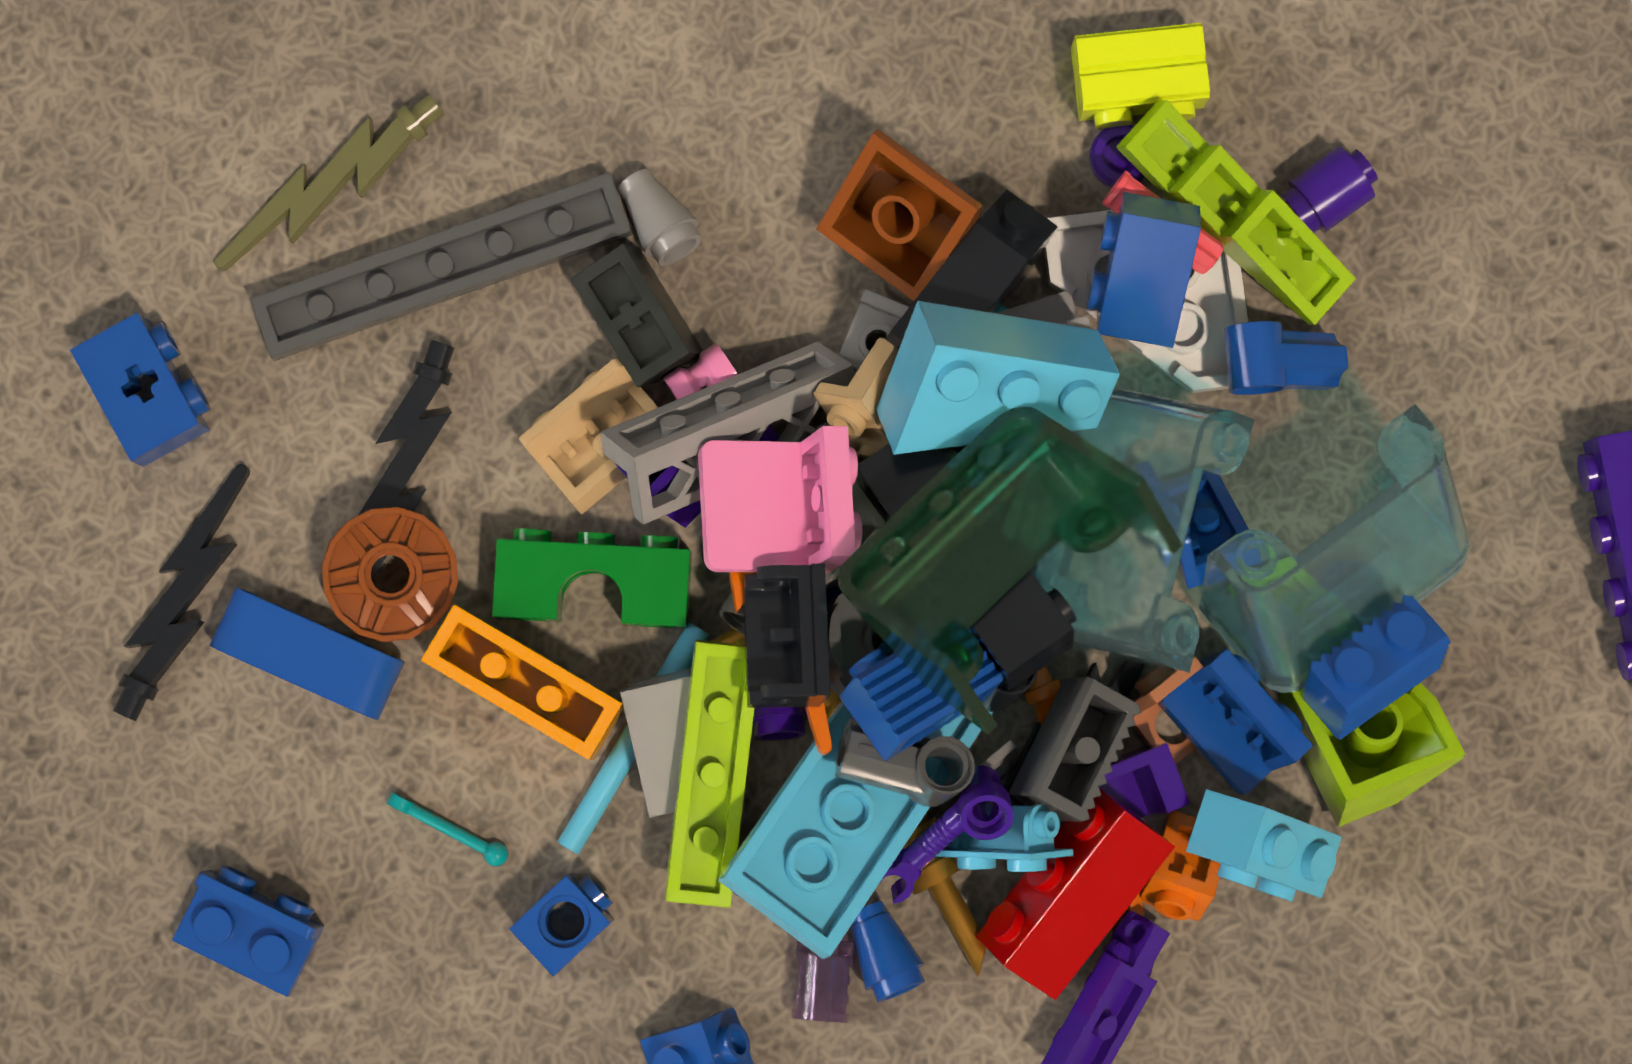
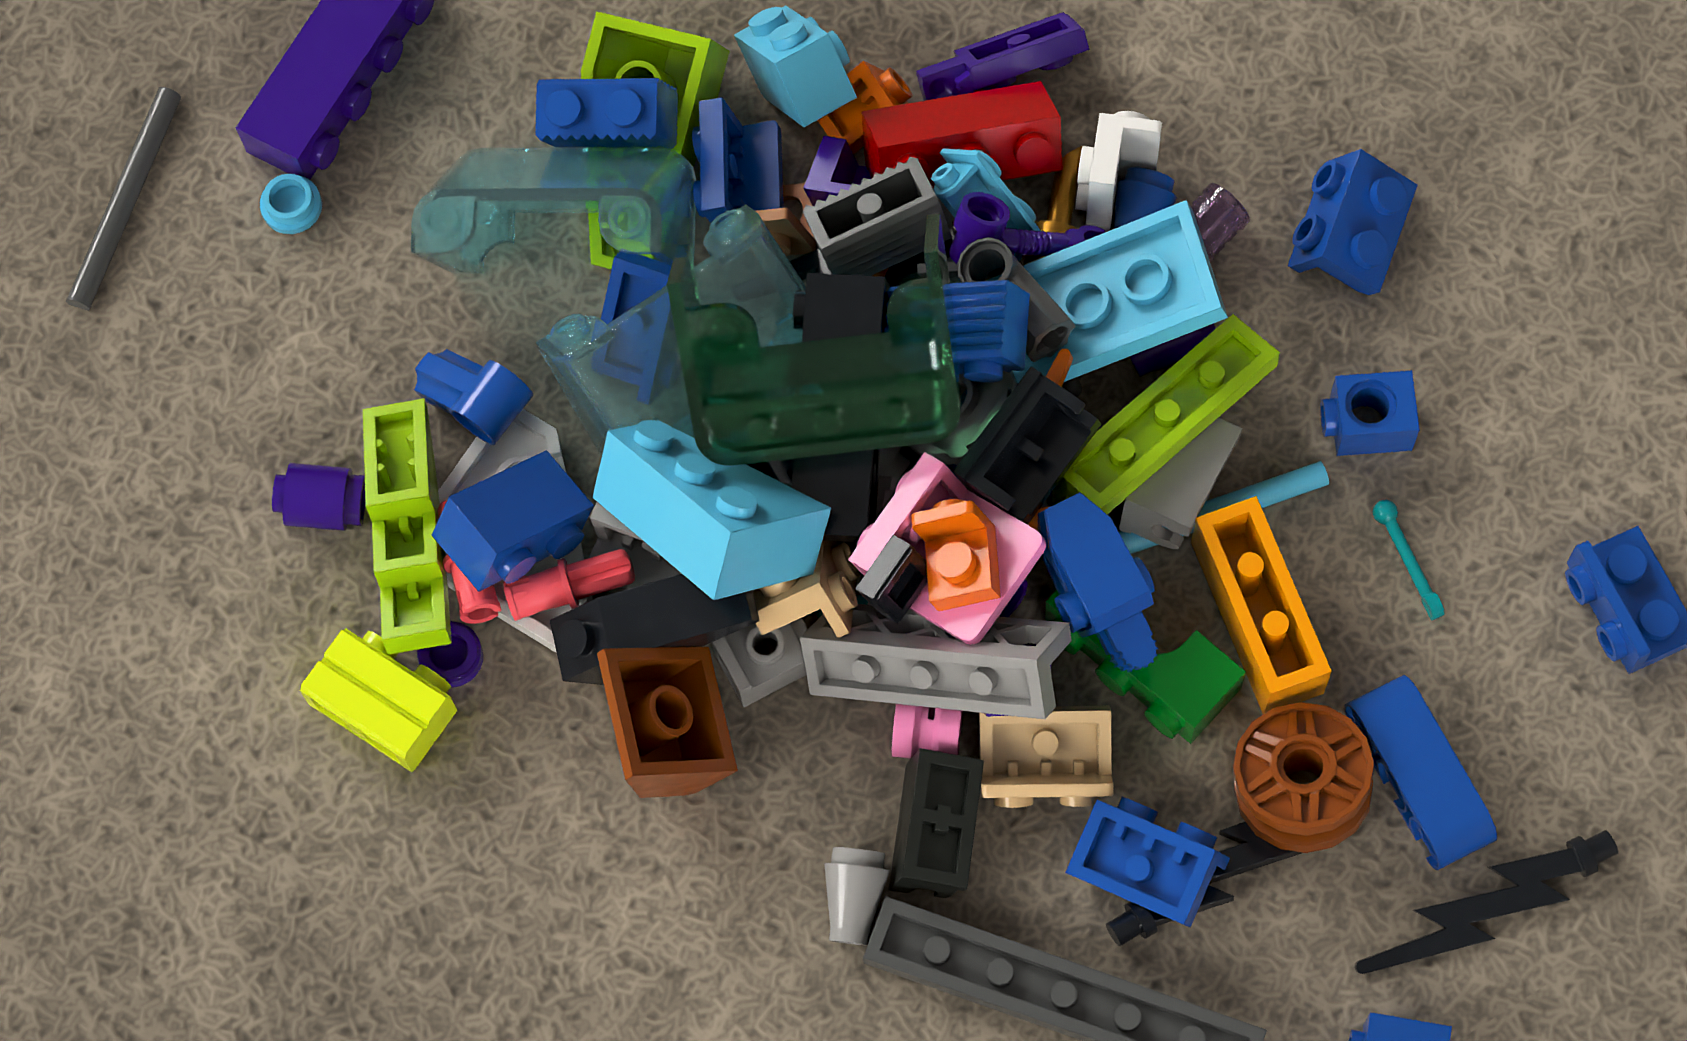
camera: 135 degrees left, 15 degrees down
(455, 413) = (1146, 862): none -> blue bracket
(644, 577) = (1098, 581): none -> blue hinge
(765, 501) = (958, 554): none -> orange bracket
(801, 445) = (894, 579): none -> black tile
(936, 949) = (1120, 143): none -> white bracket
(1067, 268) = (568, 583): none -> coral axle
(1577, 410) = (290, 204): none -> medium azure plate

